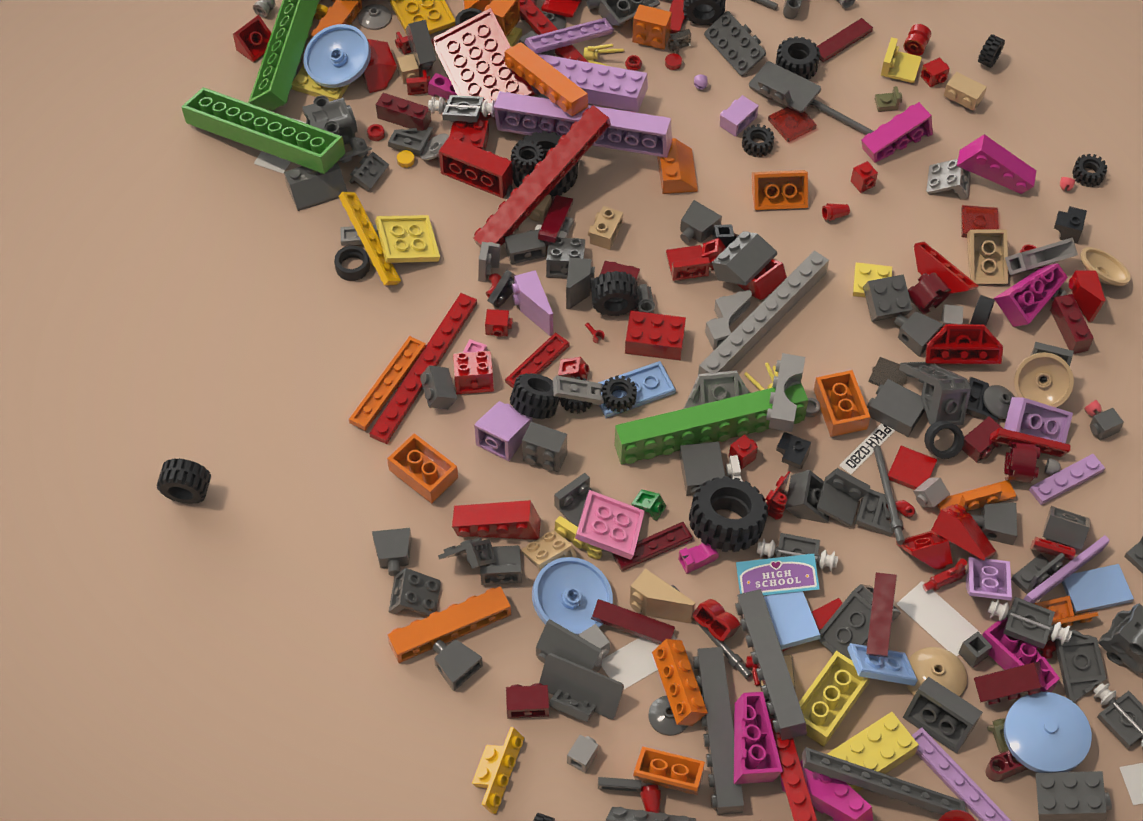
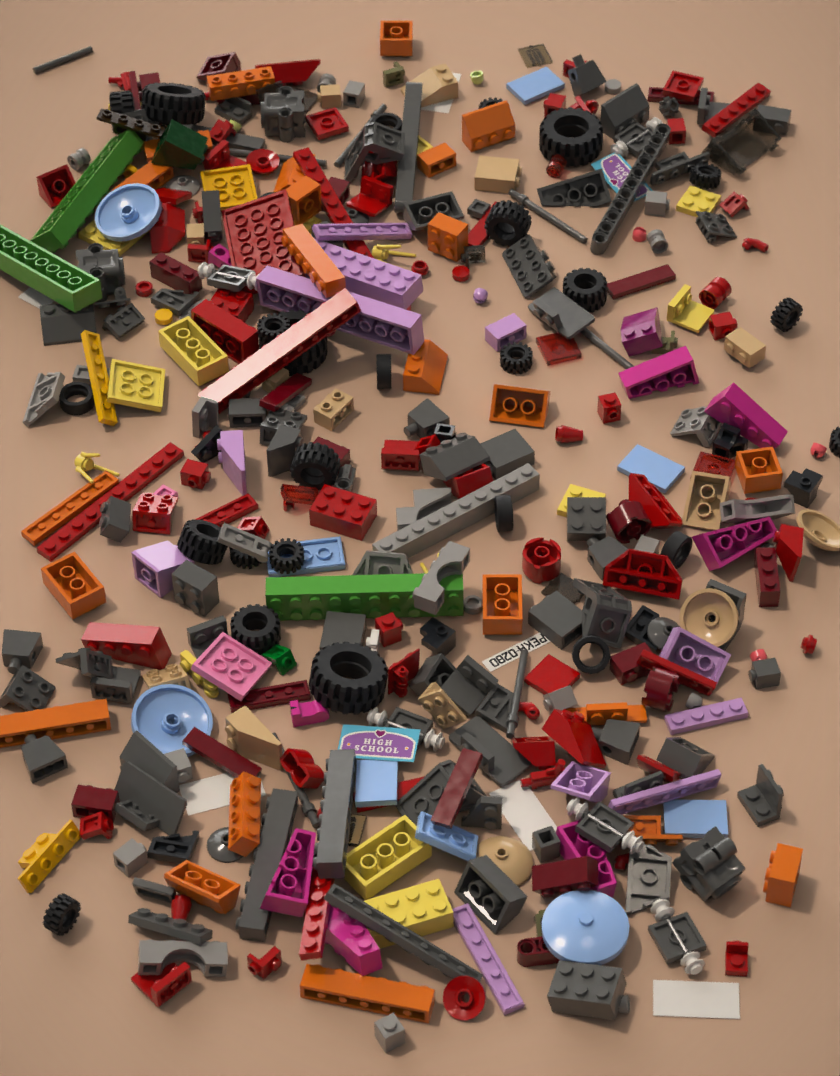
camera: 15 degrees right, 10 degrees down
(320, 266) = (44, 395): none -> light grey wing
(372, 30) = (173, 196): none -> red tile
(385, 332) = (85, 463): none -> light yellow plant
(450, 191) = (193, 351): none -> light yellow brick
(536, 726) = (96, 825): none -> red bracket
(607, 324) = (299, 494): none -> clear red tile
(620, 466) = (256, 618): none -> black tyre
(620, 732) = (173, 847): none -> black wing
(642, 179) = (384, 371): none -> black tyre
(789, 241) = (507, 453): none -> dark grey brick
(808, 307) = (503, 513): none -> black tyre
(827, 525) = (441, 706): none -> tan bracket
(860, 348) = (541, 560): none -> red brick
(865, 91) = (641, 332): none -> magenta slope
(880, 556) = (499, 759): none -> dark grey bracket
(909, 629) = (485, 813): none -> dark grey wing
(917, 228) = (658, 469): none -> light blue tile
(987, 191) = (729, 442): none -> black brick
(1024, 215) = (758, 470): none -> orange brick
(1133, 385) = (808, 644): none -> red plate

